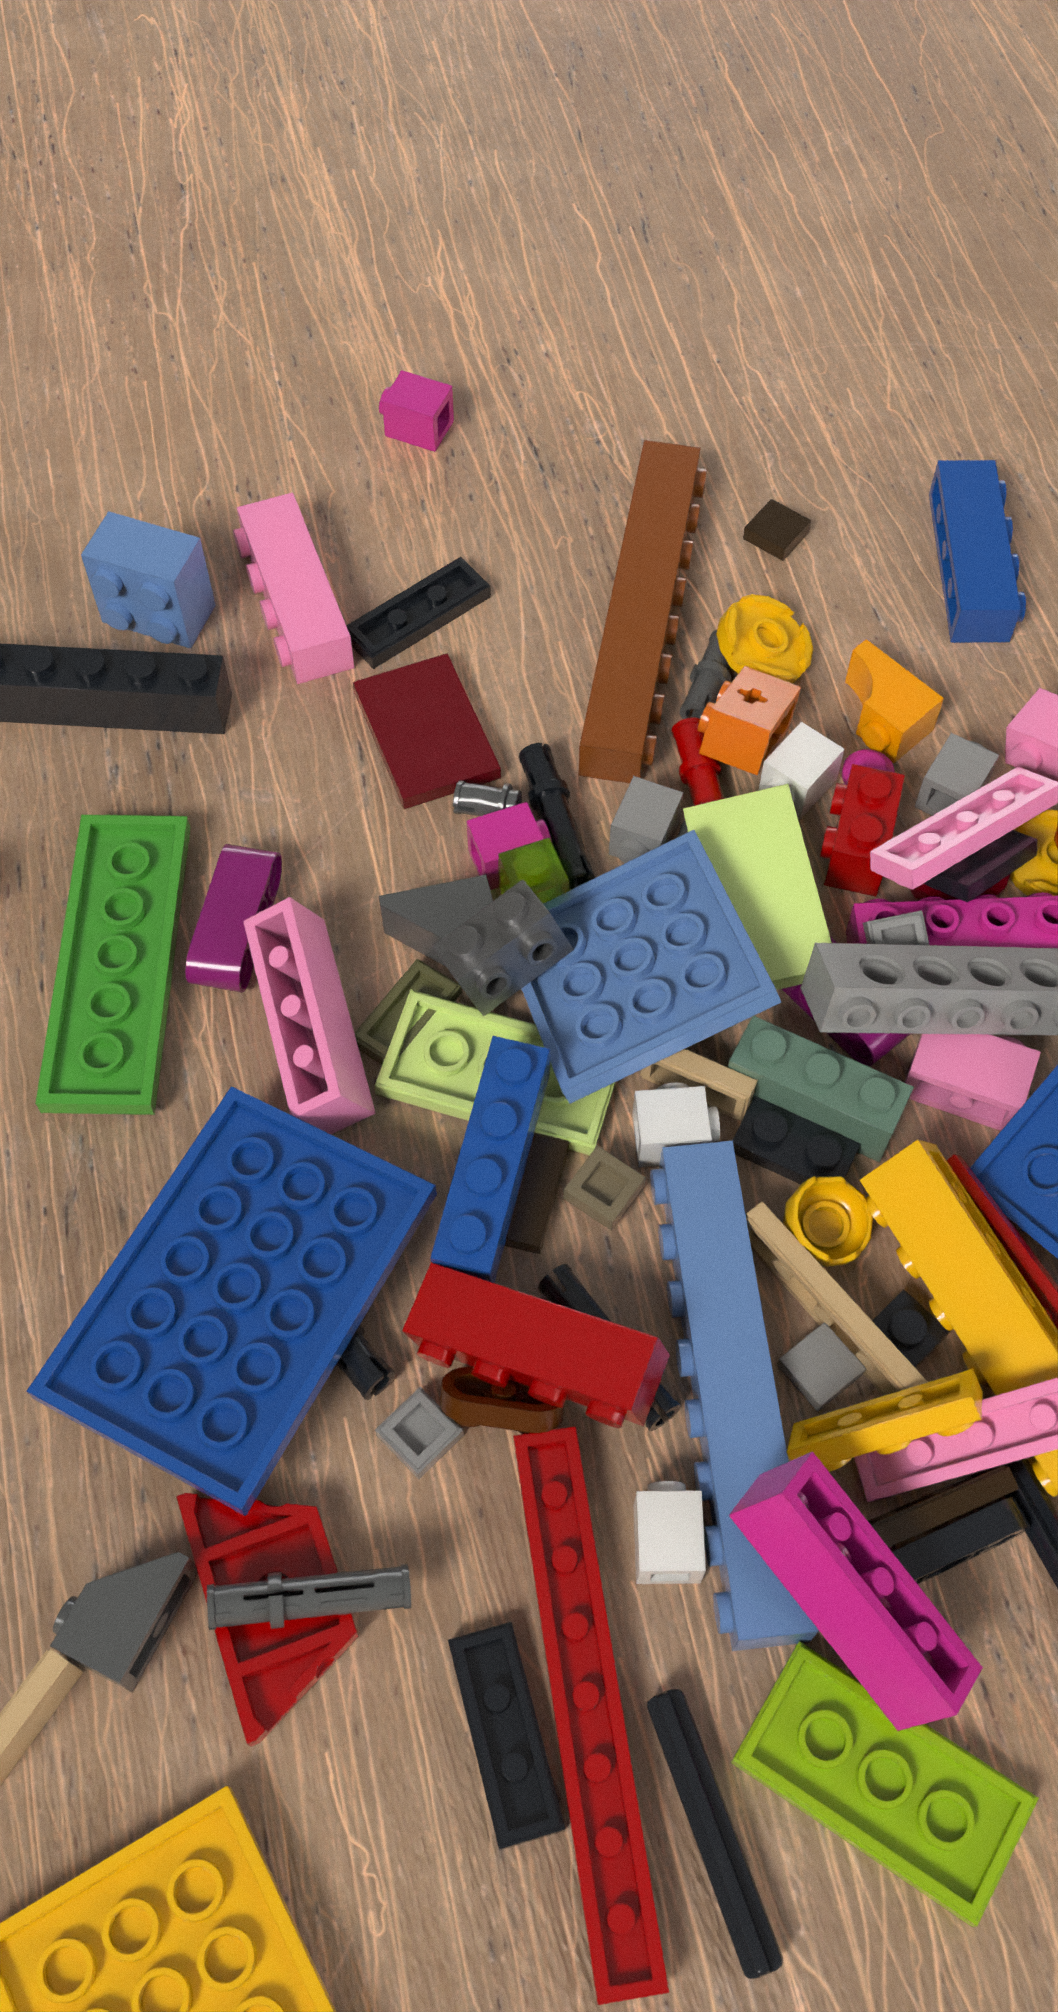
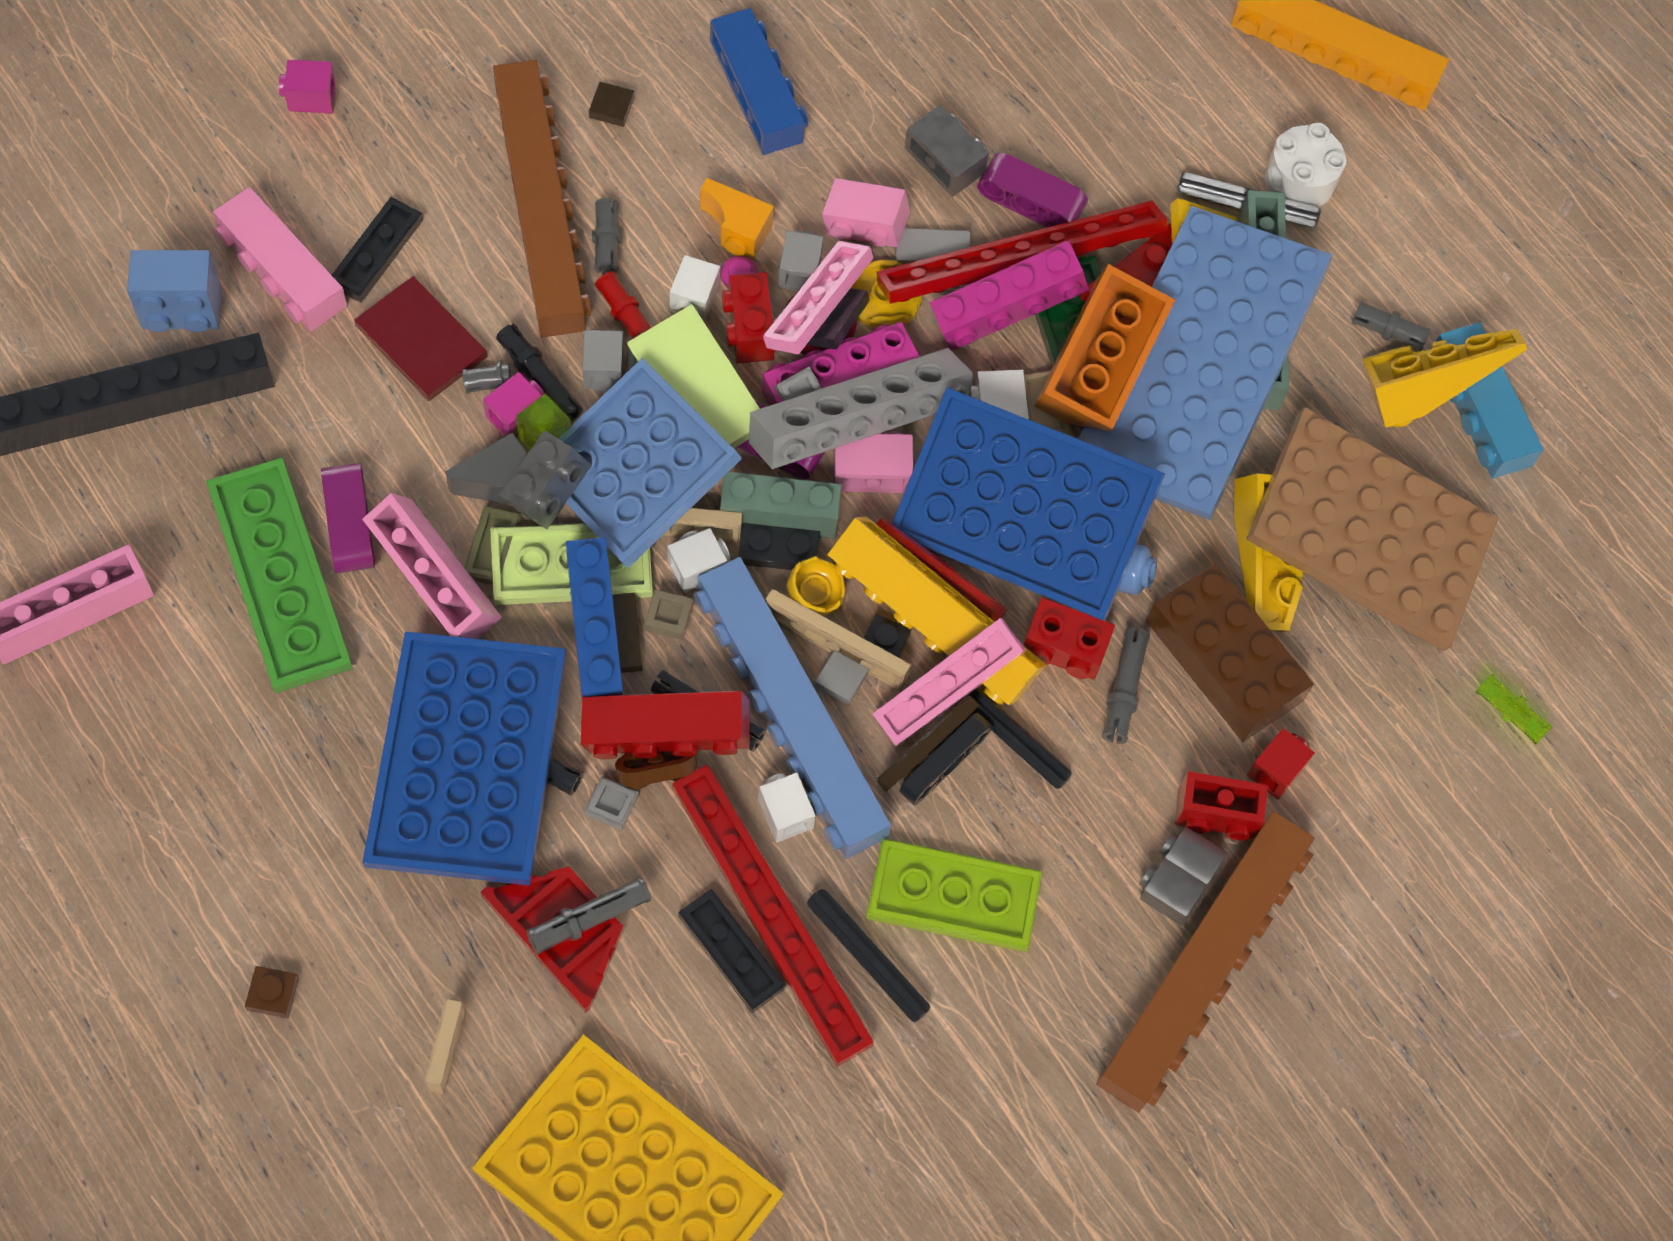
camera: 30 degrees left, 5 degrees up
(123, 1618) = (479, 970): dark grey slope -> none
(748, 719) = (646, 262): orange brick -> none
(765, 638) = (635, 198): yellow tile -> none
(857, 1593) = (898, 793): dark pink brick -> none
(890, 1421) = (891, 695): yellow plate -> none

